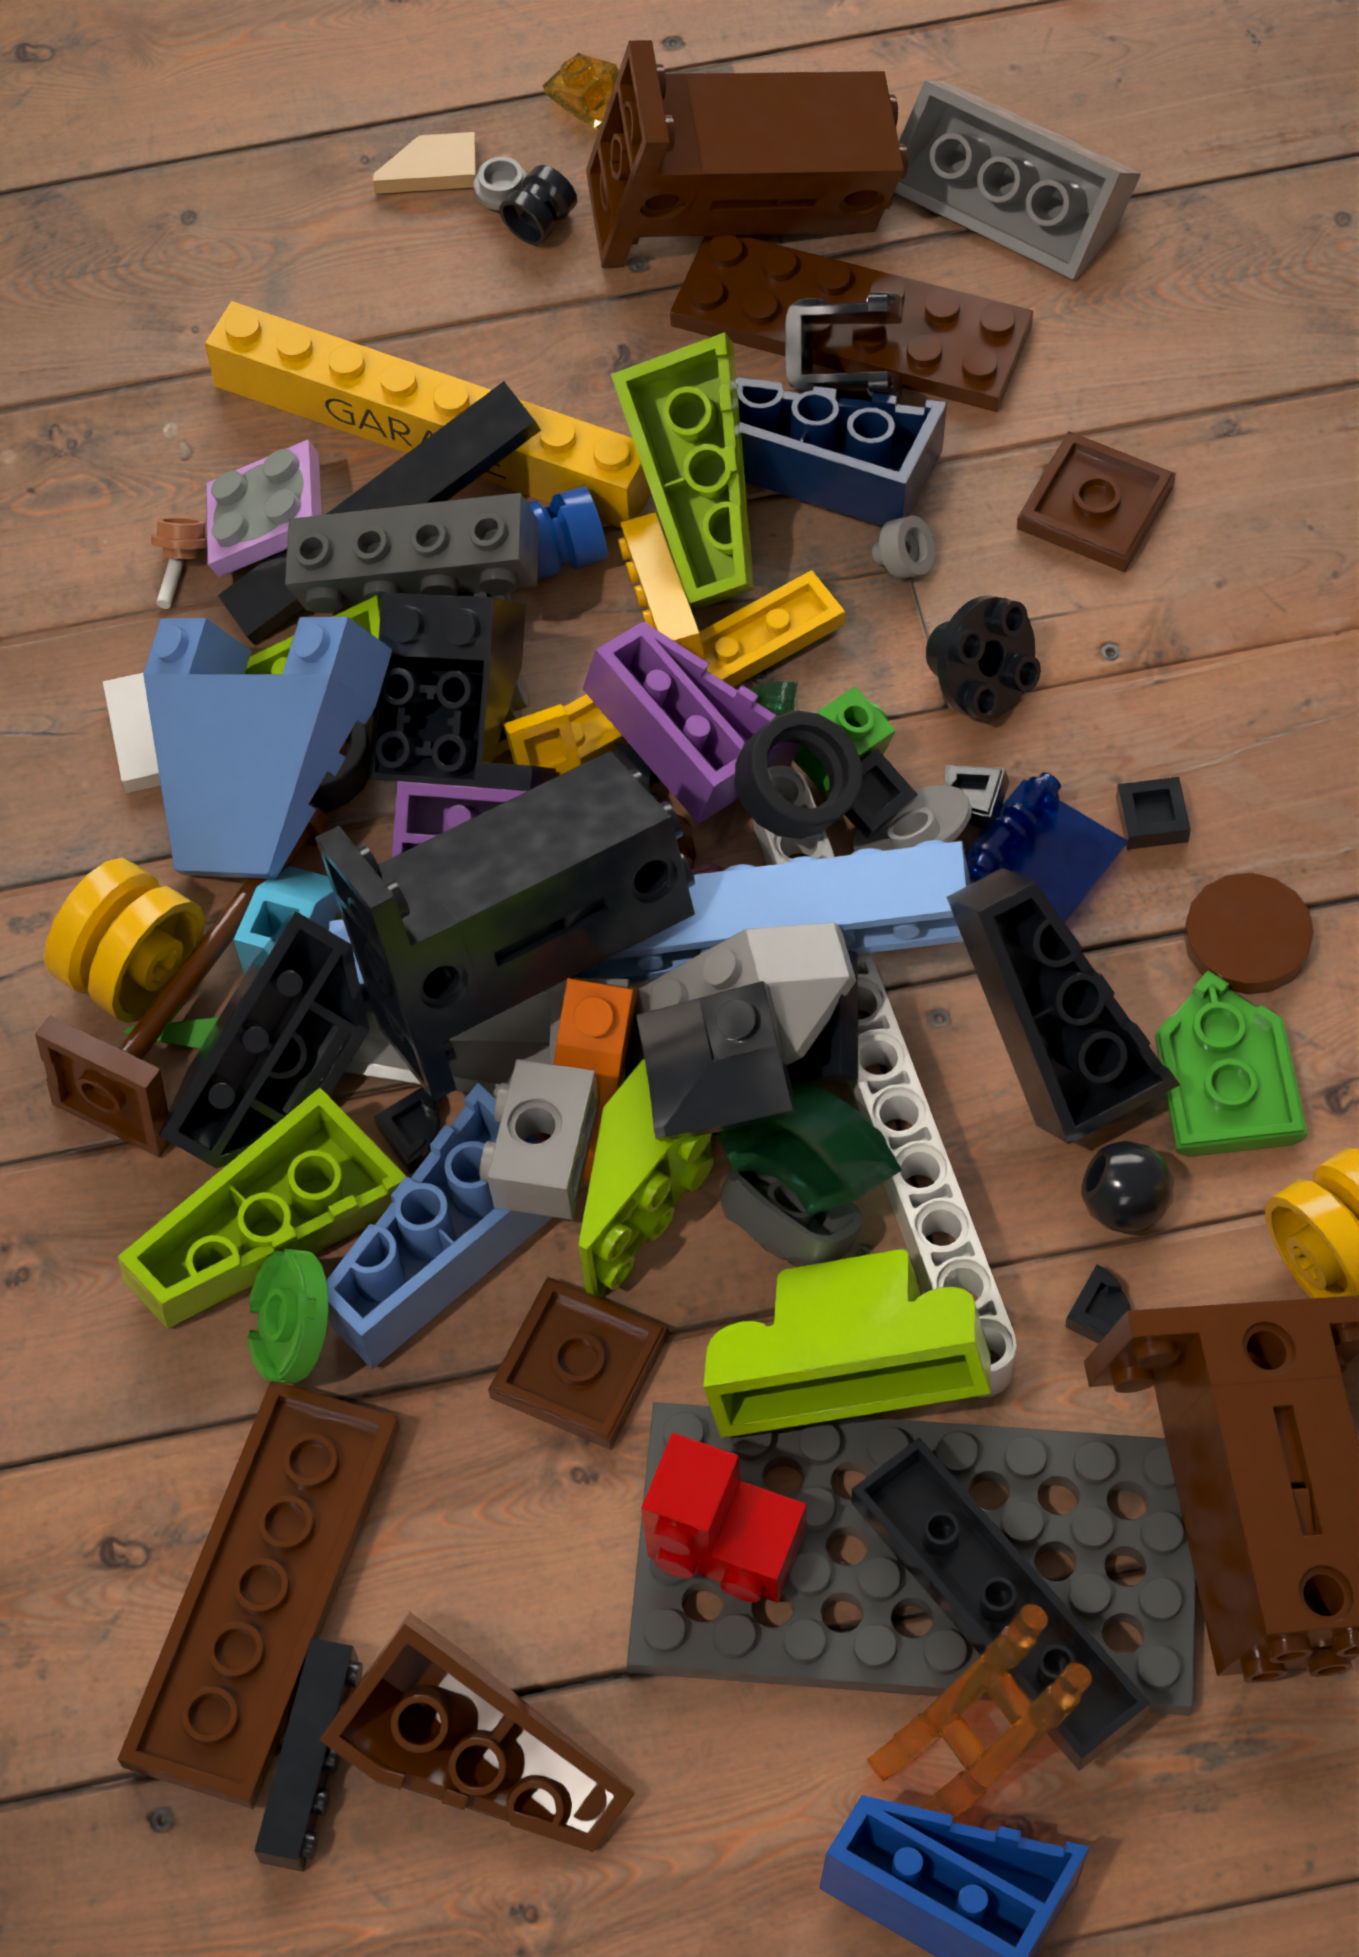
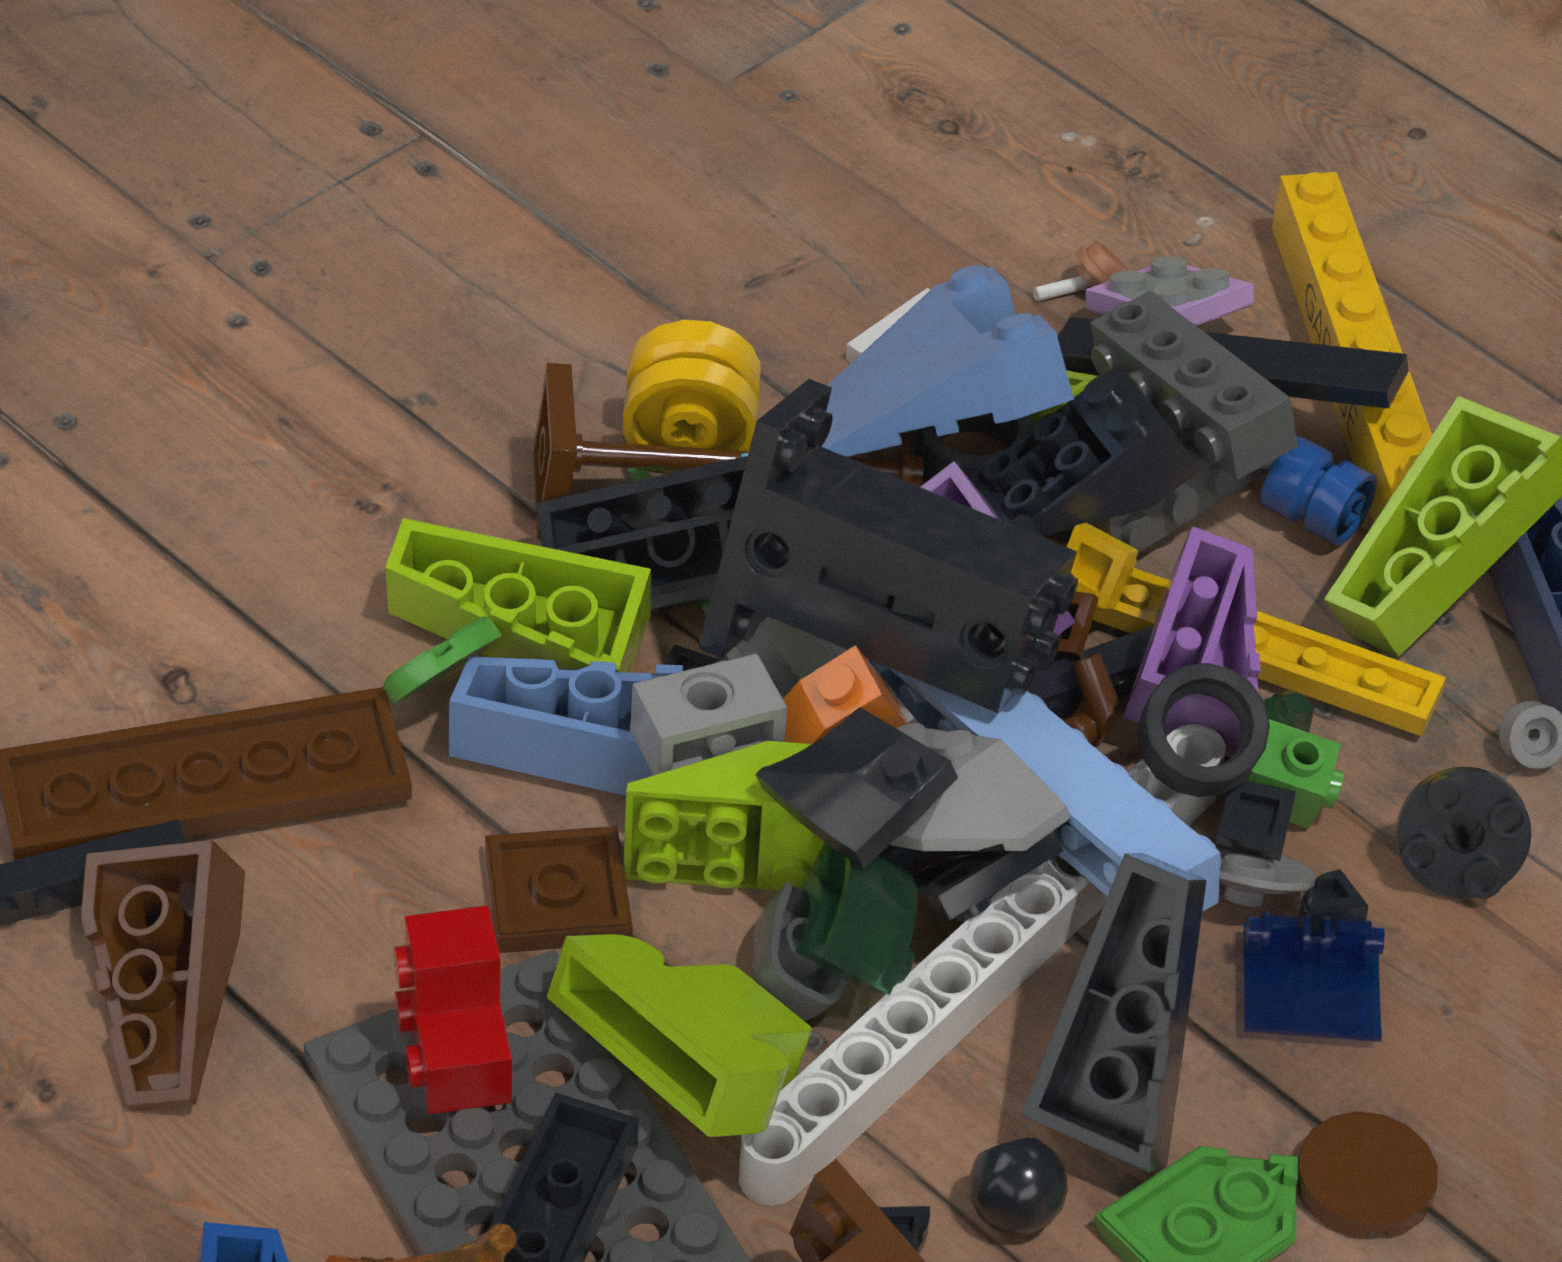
camera: 50 degrees right, 15 degrees down
(658, 582) = (1299, 598): yellow piece -> none
(1153, 813) = (1429, 1047): black tile -> none

